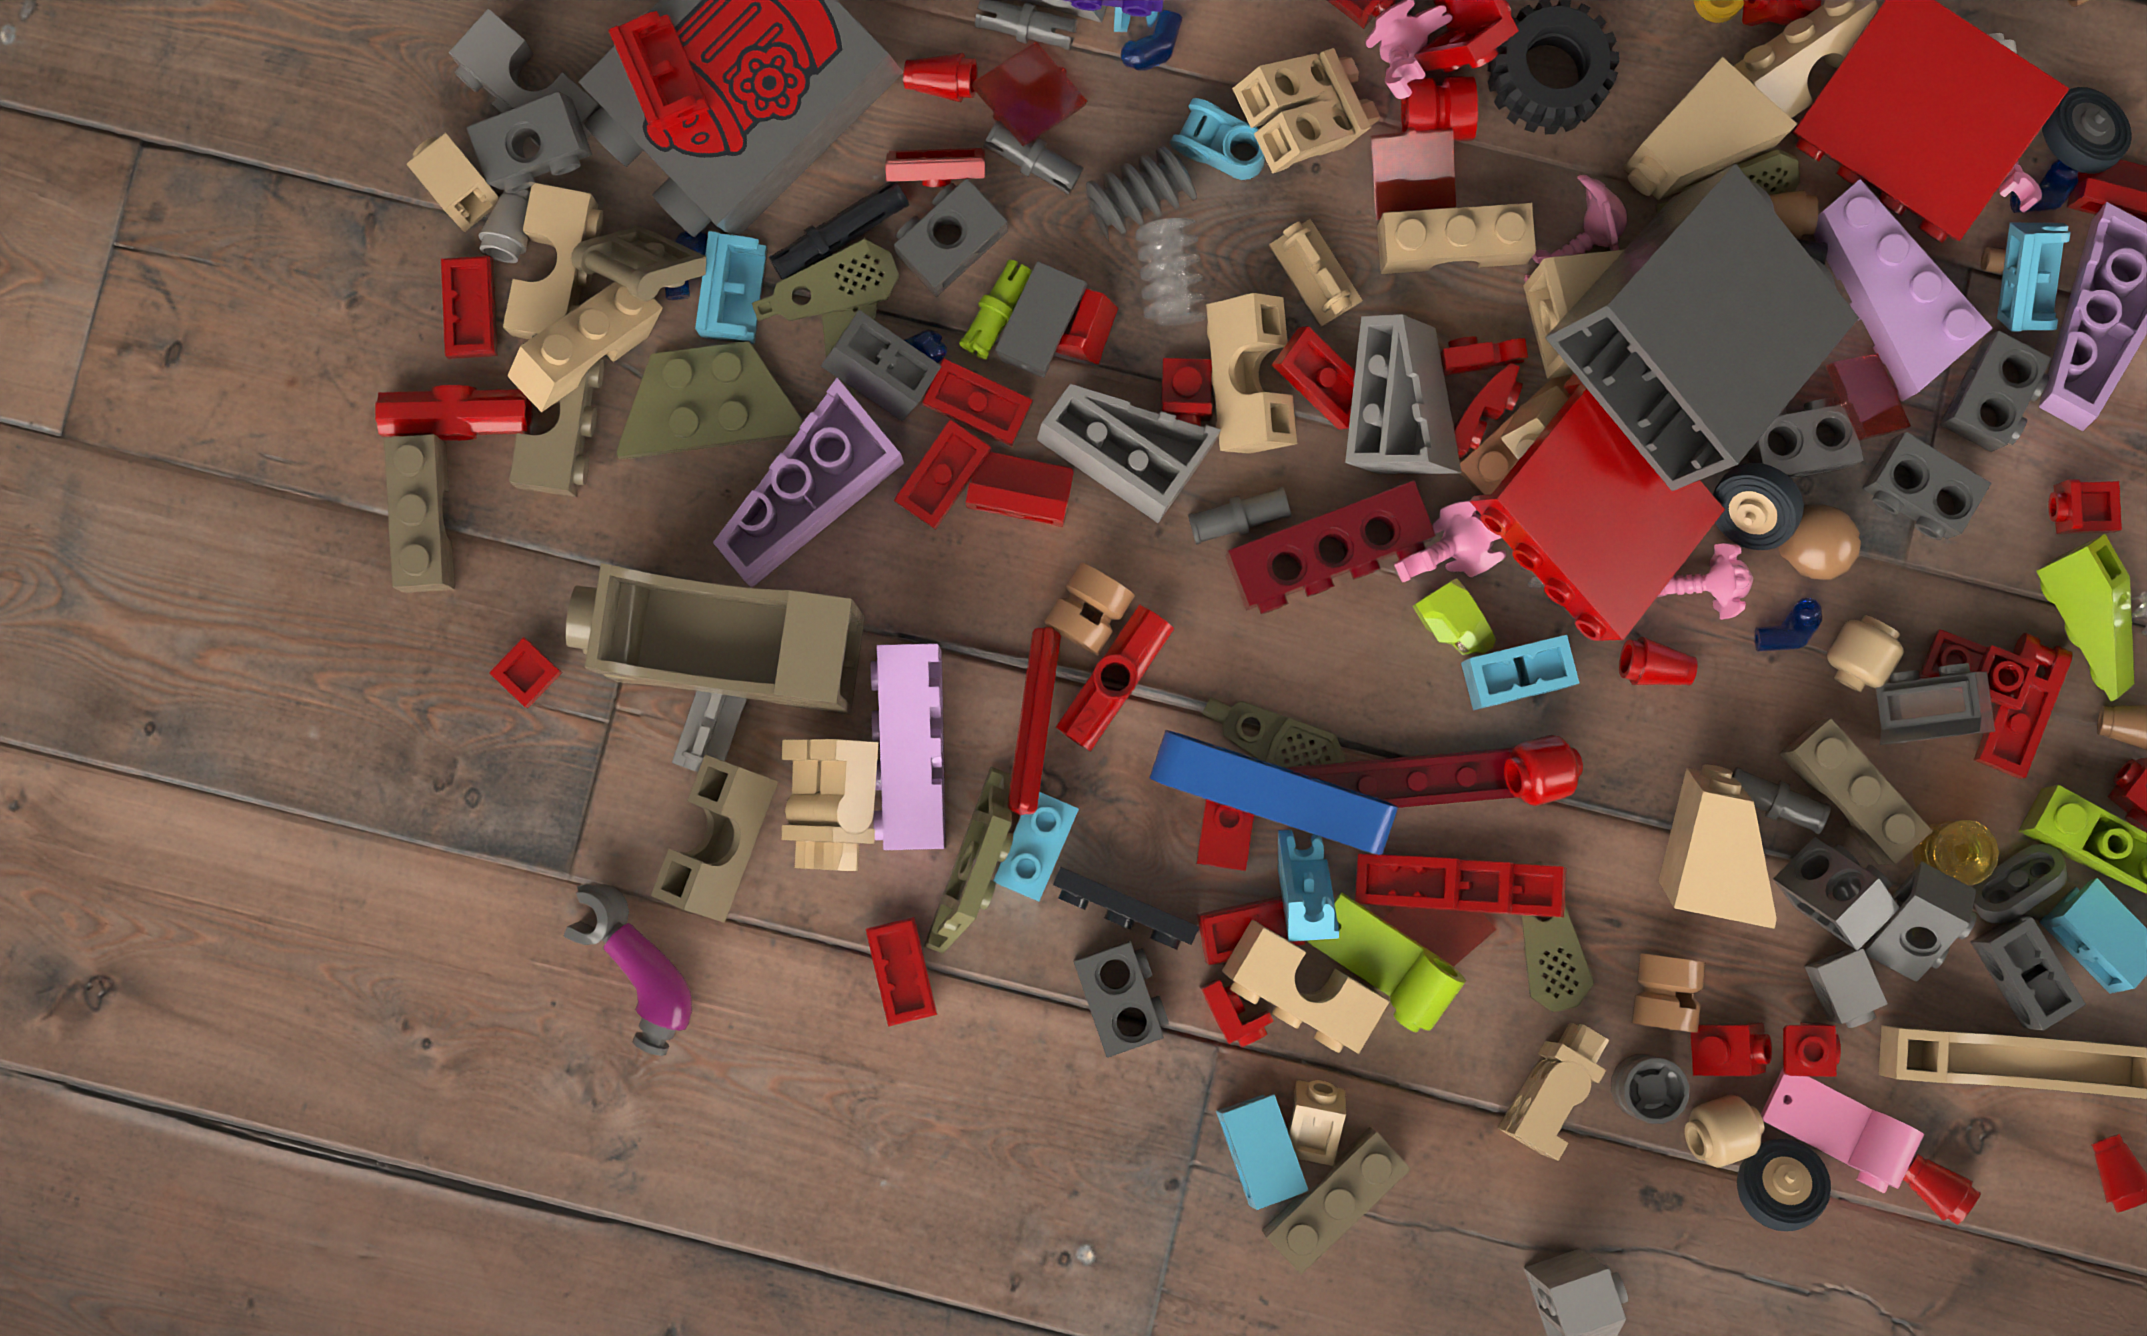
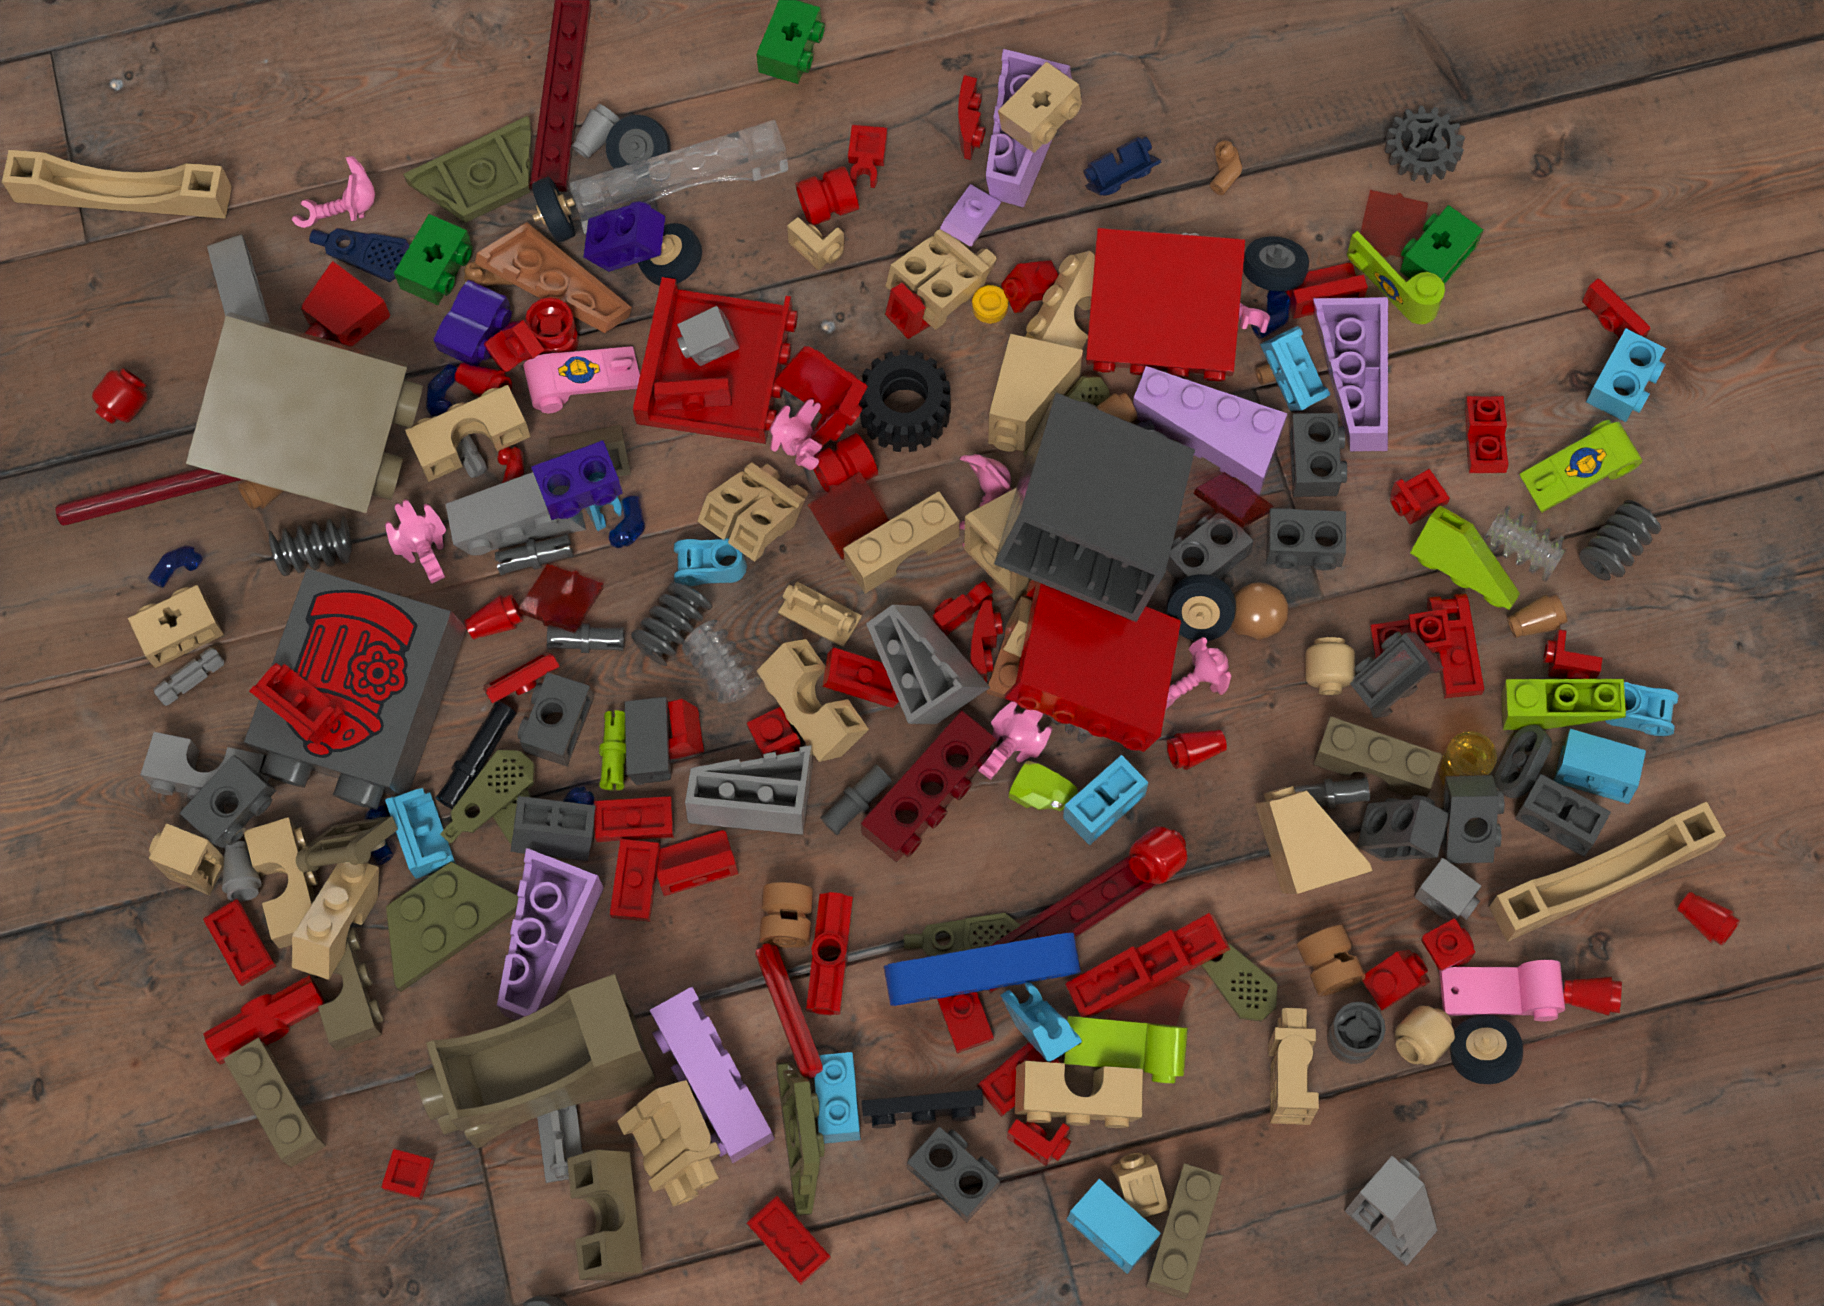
camera: 20 degrees left, 15 degrees down
(1794, 631) = (1275, 679): clear blue arm -> none

